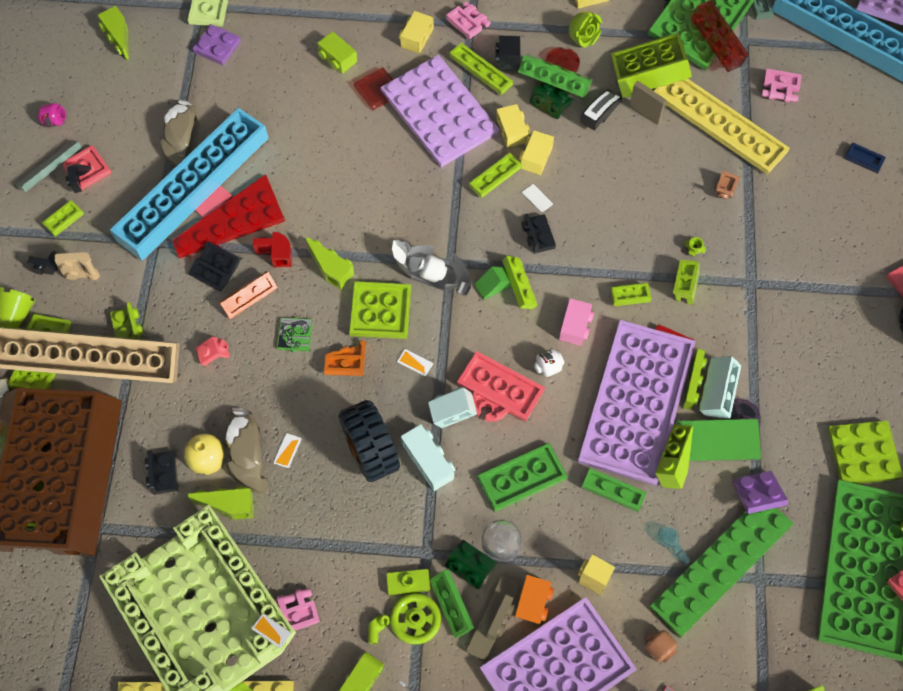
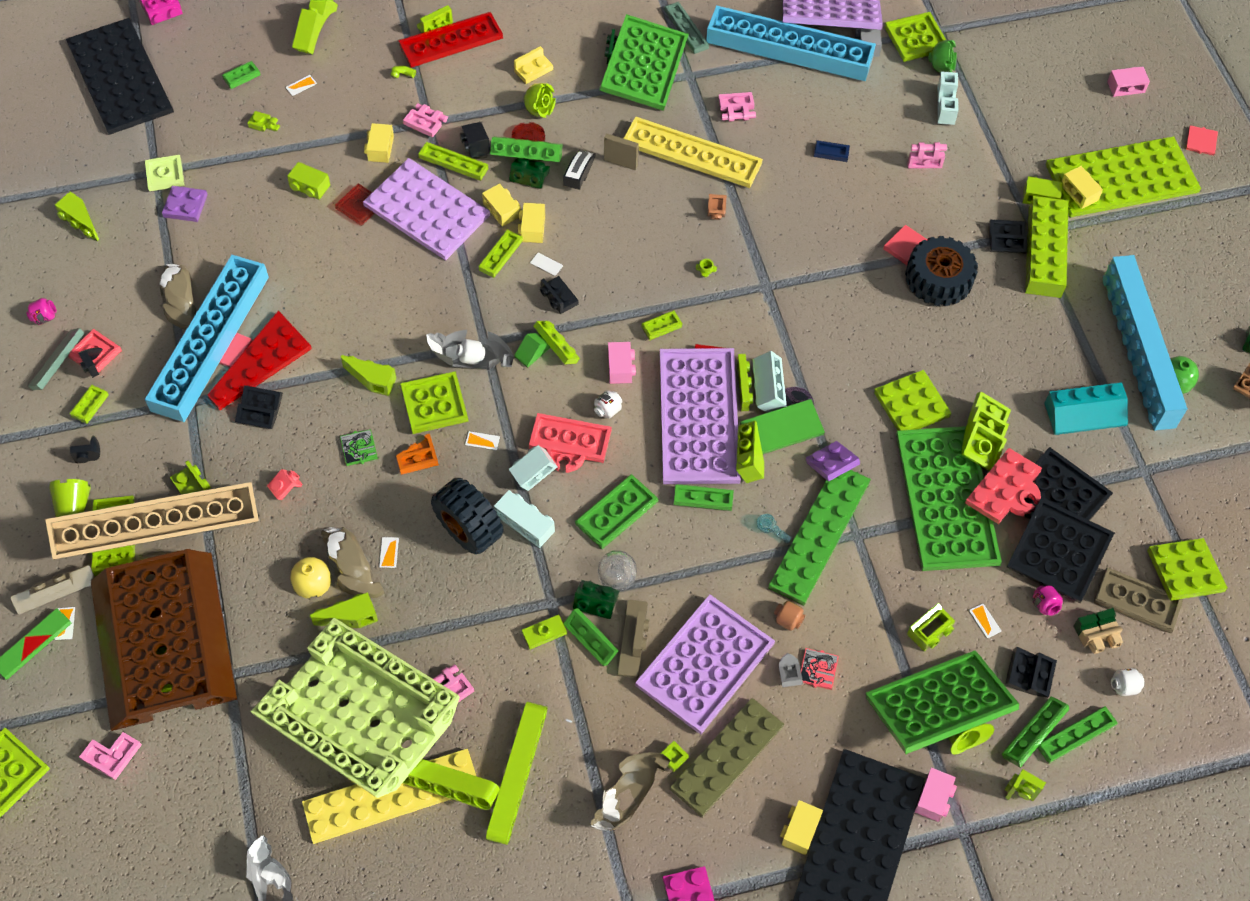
camera: 20 degrees left, 5 degrees down
(71, 266) = (116, 444): tan plate -> none
(162, 472) = (276, 606): black bracket -> none
(248, 294) = (301, 423): plate -> none
(271, 631) = (437, 701): sticker -> none
(277, 246) = (314, 372): red brick -> none
(376, 626) = (528, 678): lime arm -> none
(433, 619) = (551, 673): lime plate -> none
(533, 600) = (664, 610): orange brick -> none
(595, 574) = (712, 571): light yellow brick -> none
(652, 64) = (613, 114): lime slope -> none
(686, 280) = (708, 298): lime hinge -> none
(719, 36) = (667, 75): clear red brick -> none

